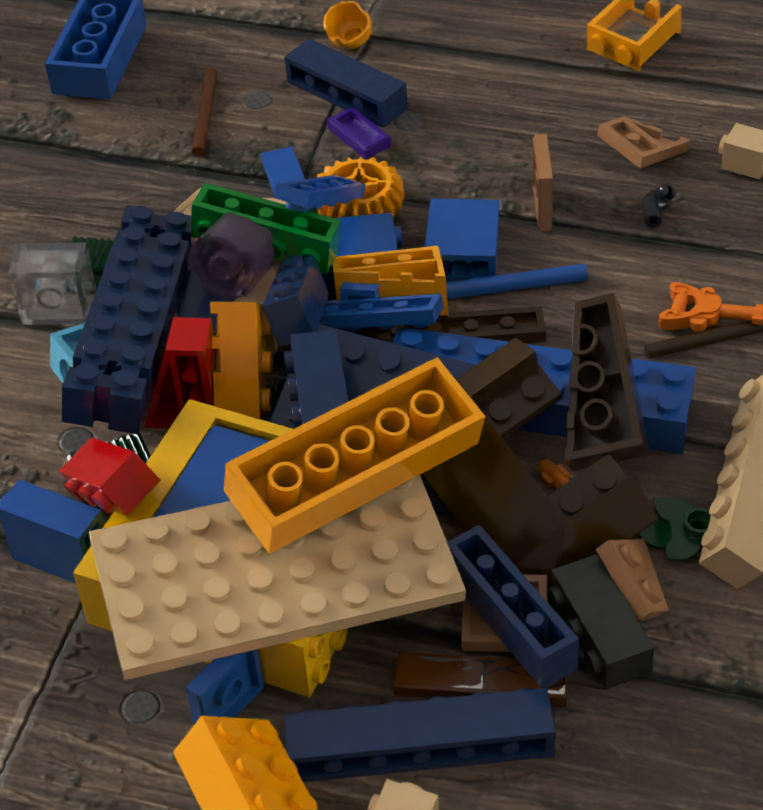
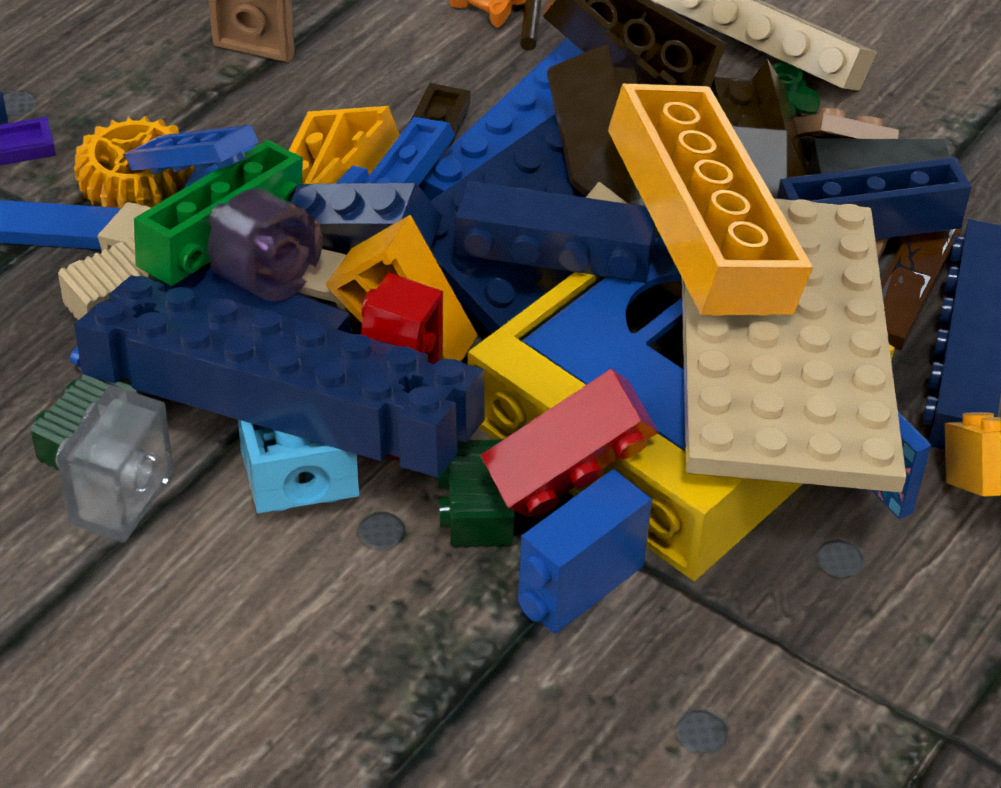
camera: 75 degrees left, 0 degrees up
(465, 236) = (274, 99): blue brick -> none
(516, 281) = (374, 74): blue piece -> none

